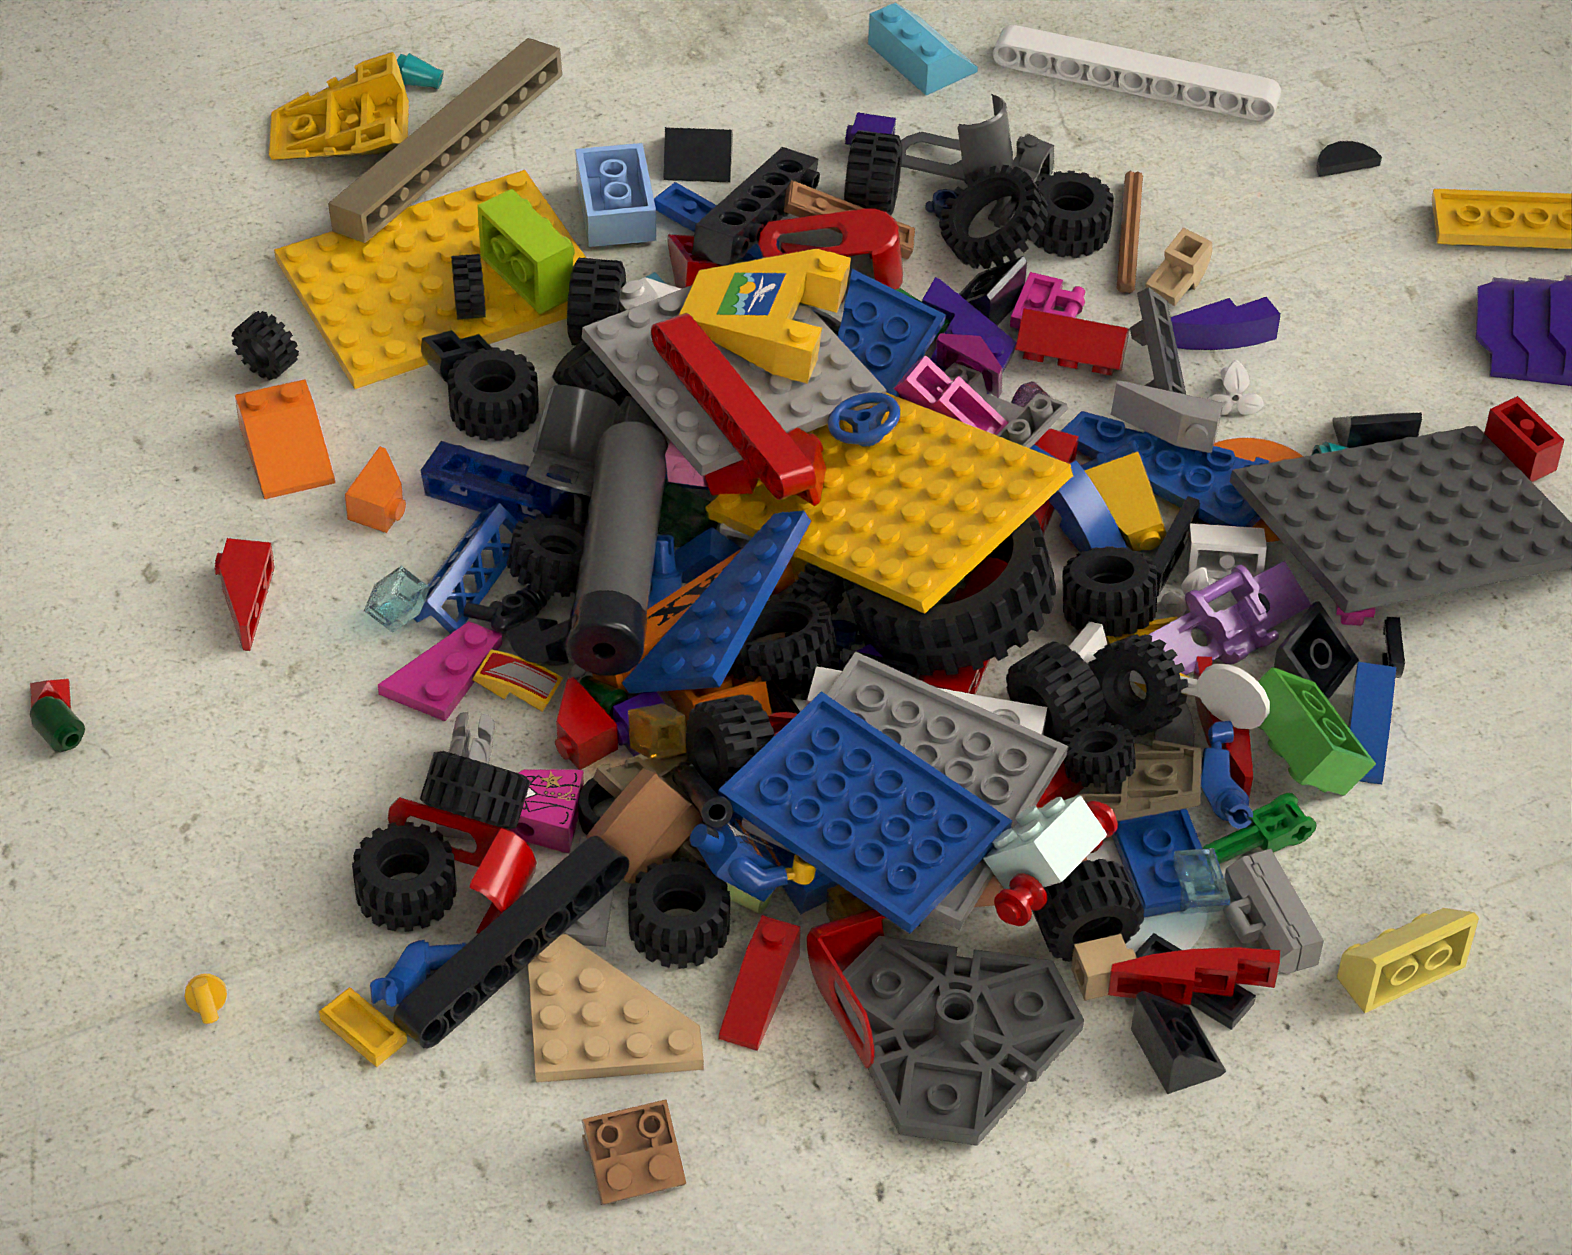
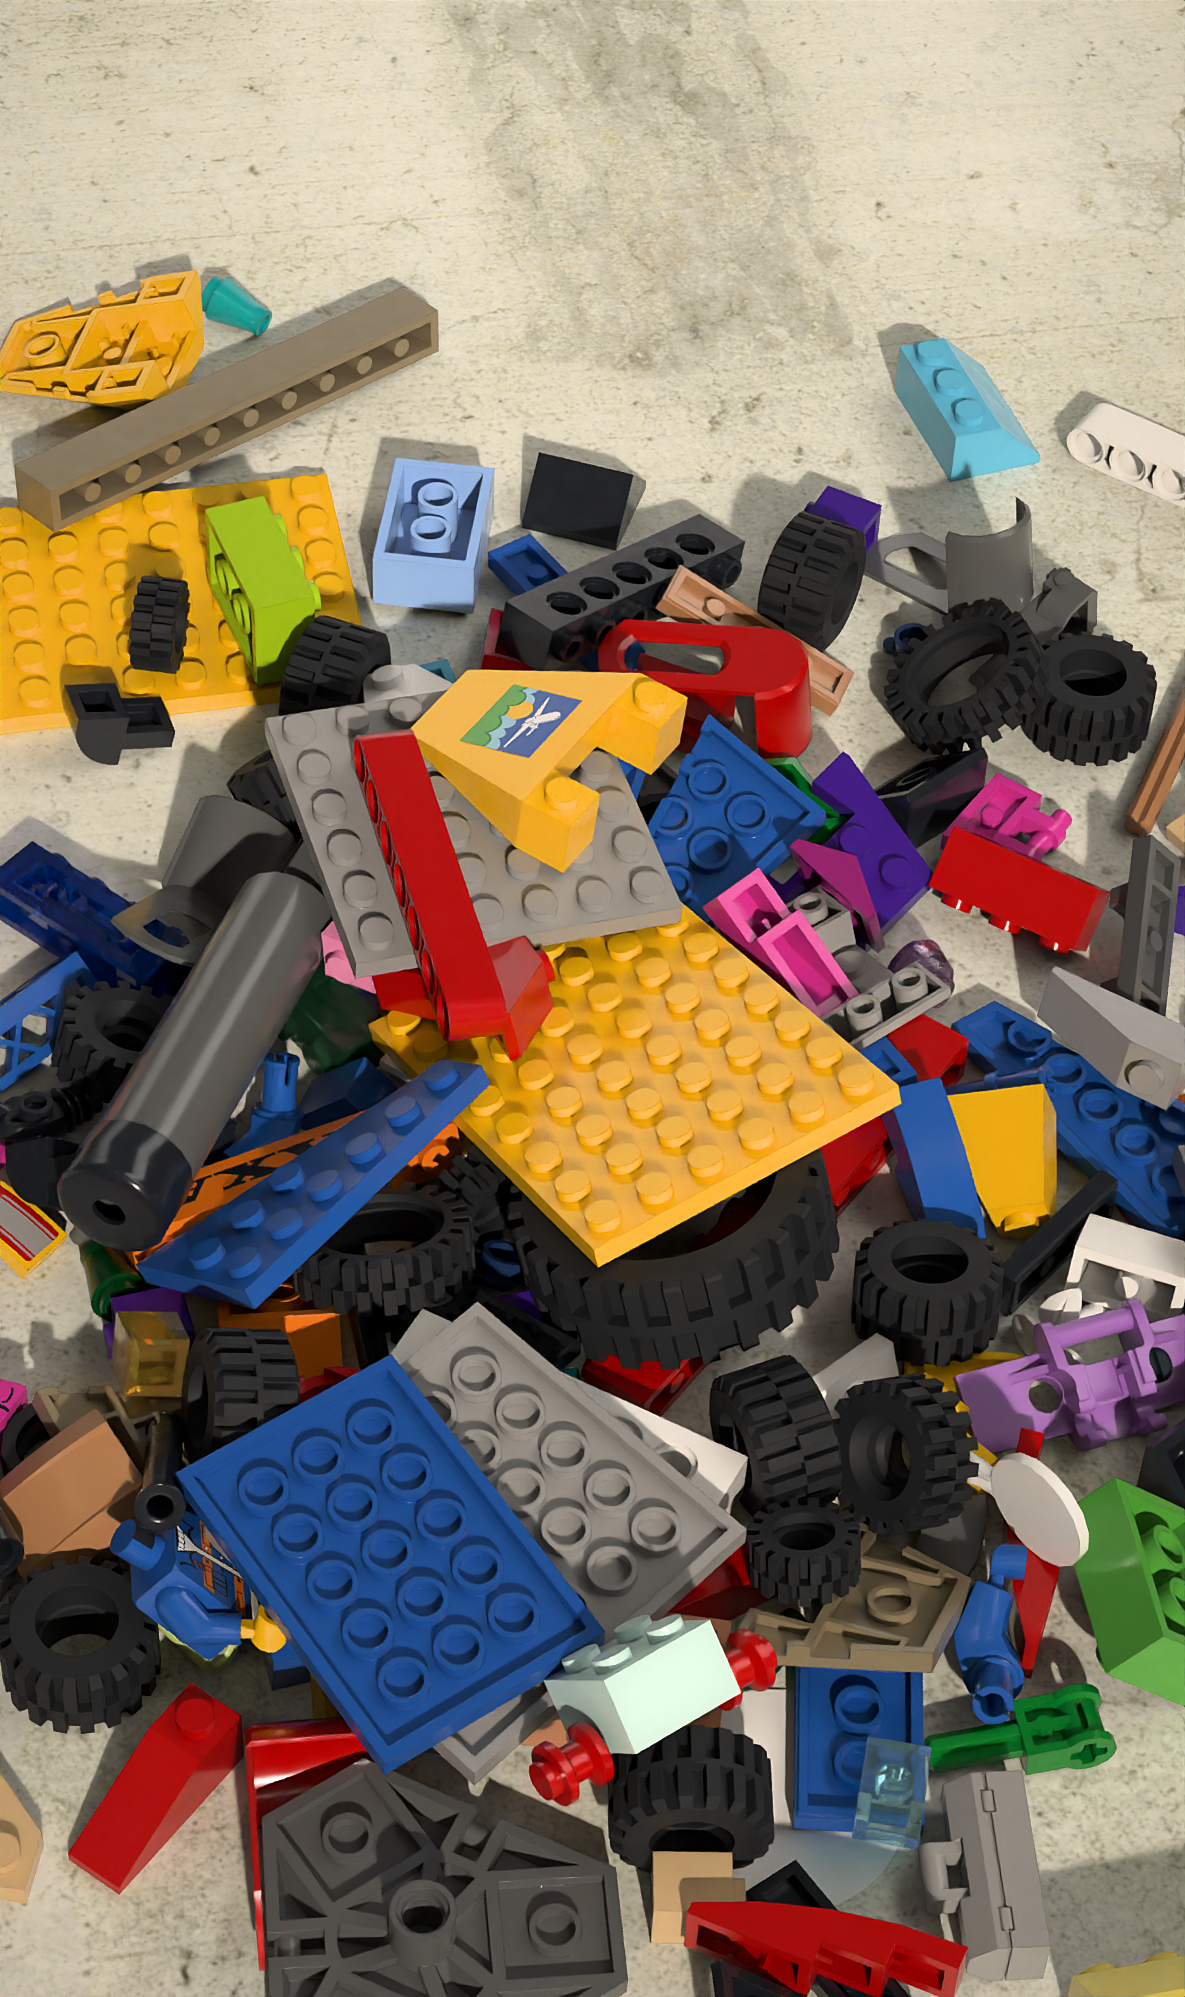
camera: 15 degrees right, 0 degrees up
(493, 394) = (138, 787): black tyre -> none
(583, 727) = (60, 1319): red slope -> none
(865, 422) = (630, 950): blue piece -> none

